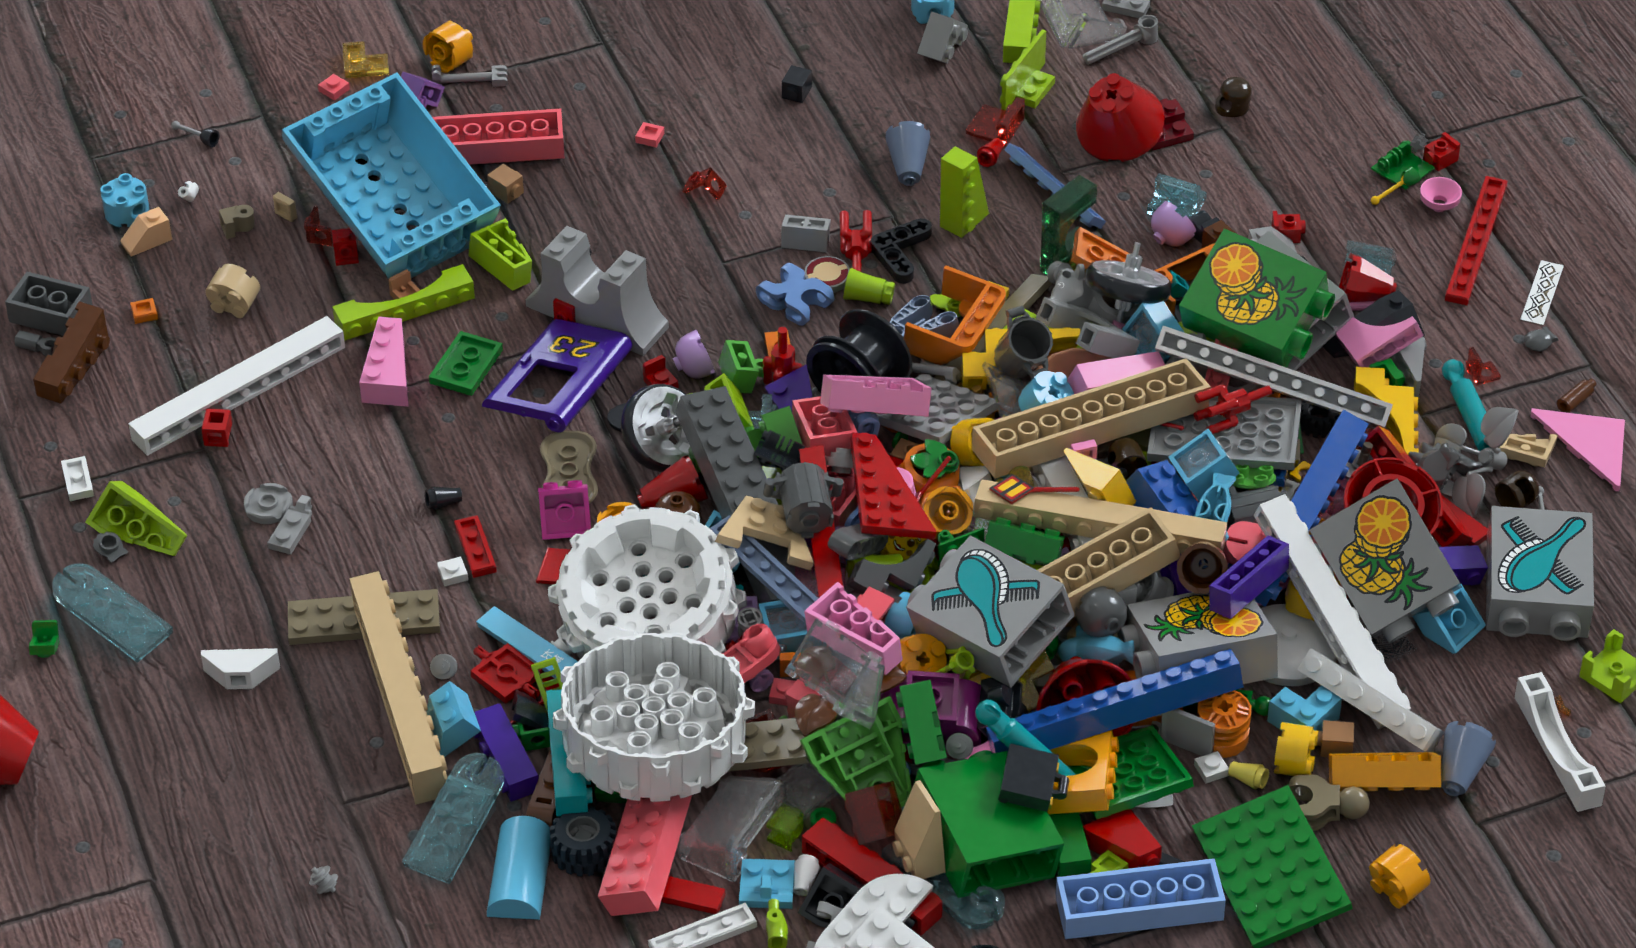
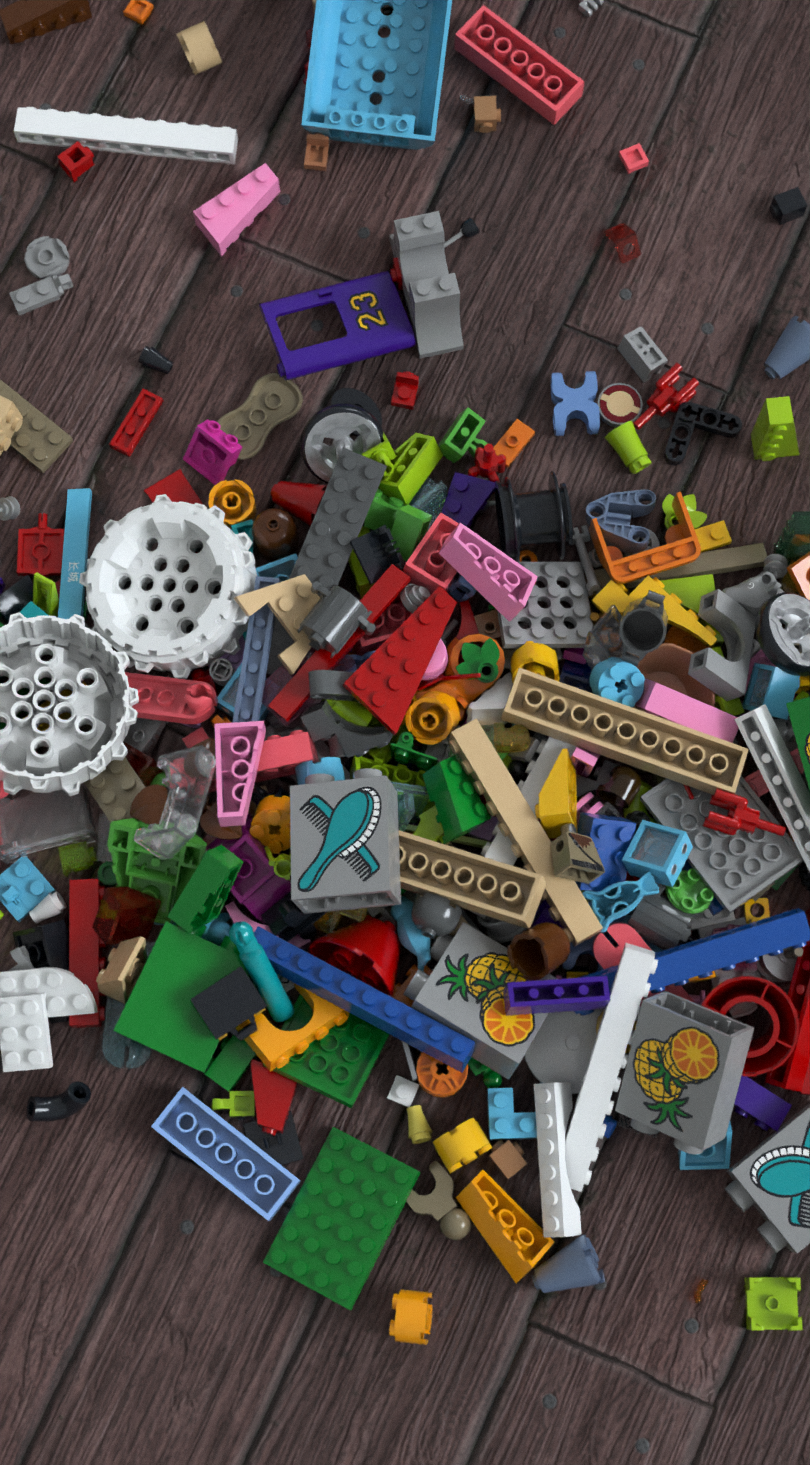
camera: 45 degrees right, 30 degrees up
(448, 290) = (349, 177): lime arch -> none
(452, 571) = (99, 430): white plate -> none
(466, 363) = (291, 255): green plate -> none
(501, 254) = (411, 176): lime wedge -> none
(693, 356) = (440, 396): lavender cylinder -> none
(959, 746) = (237, 913): light grey wheel -> none
(1014, 488) = (487, 750): piece -> none
(1150, 495) = (575, 856): none -> dark tan torso
(1576, 775) = (651, 1325): white arch -> none

